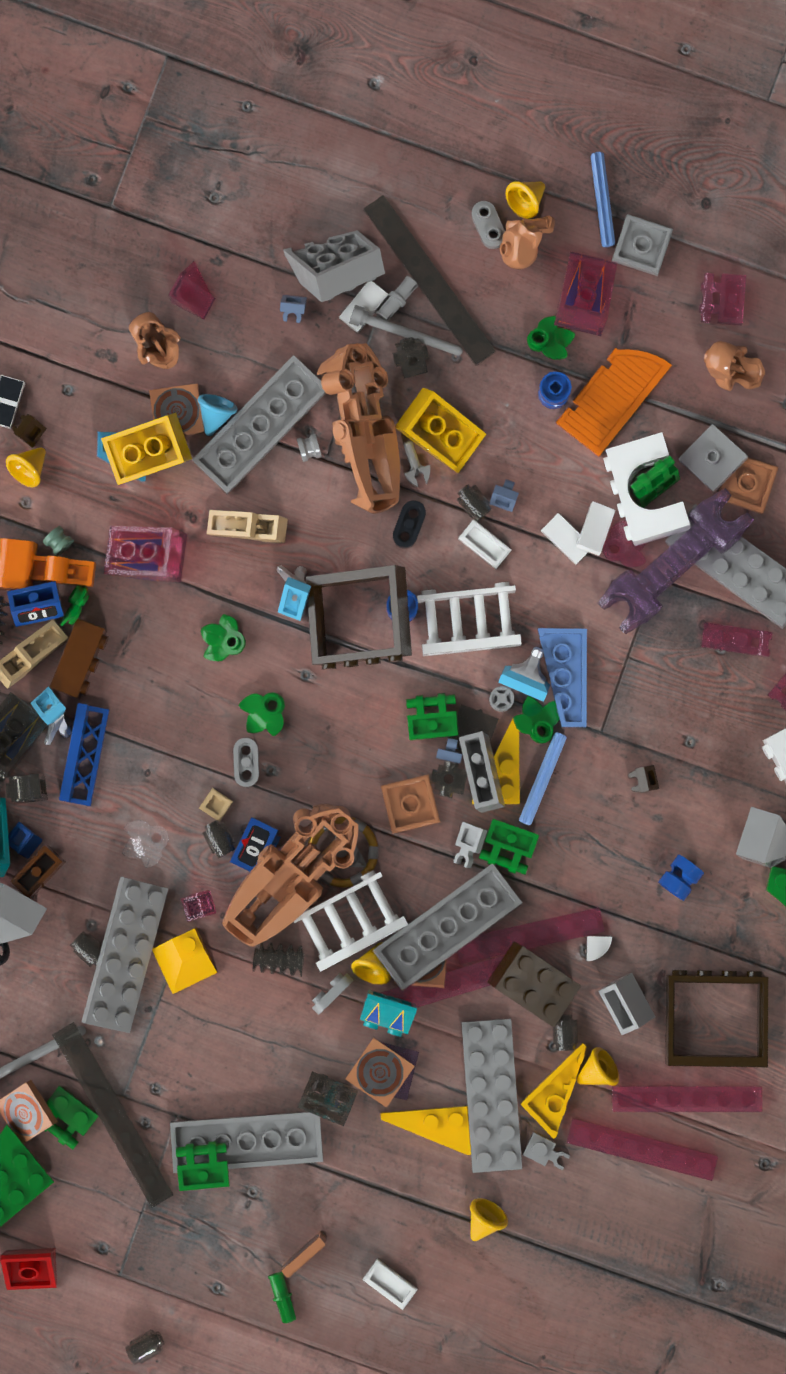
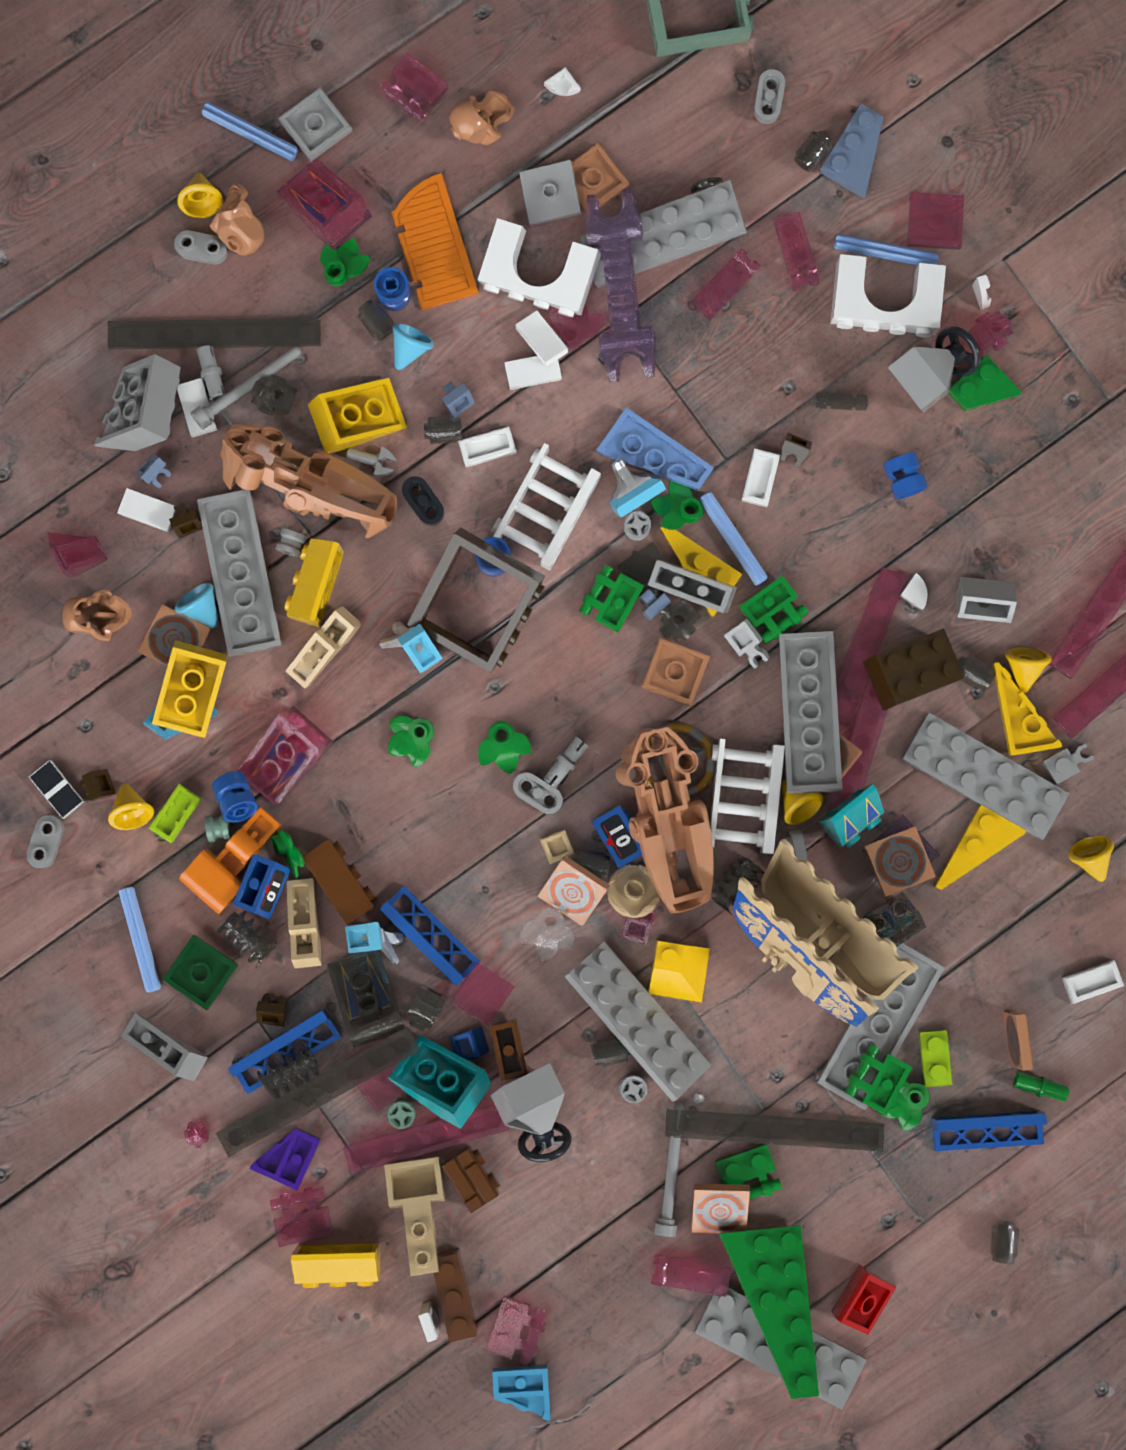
camera: 60 degrees left, 0 degrees up
(47, 502) = (175, 813): none -> lime plate
(67, 824) = (482, 994): none -> clear pink piece
(70, 989) = (634, 1093): none -> light grey wheel
(88, 537) = (234, 796): none -> blue wheel
(190, 839) = (573, 890): none -> tile
(196, 1204) = (905, 1108): none -> green plate
(219, 883) = (632, 891): none -> tan tile
(229, 1274) = (990, 1121): none -> blue fence
(249, 1201) = (935, 1058): none -> lime plate
(260, 323) = (146, 510): none -> white tile
(271, 358) = (185, 521): none -> dark brown tile
(277, 1035) = (806, 925): none -> tan animal
(284, 767) = (565, 762): none -> light grey pin
(291, 485) = (314, 581): none -> yellow slope
(522, 432) = (409, 345): none -> medium azure hat
(523, 394) = (375, 320): none -> clear smoke brick
(604, 767) = (760, 477): none -> white tile
(655, 481) = (536, 255): green plate -> none
(706, 789) = (841, 401): none -> clear smoke axle
(706, 976) = (1111, 513): dark brown window -> none

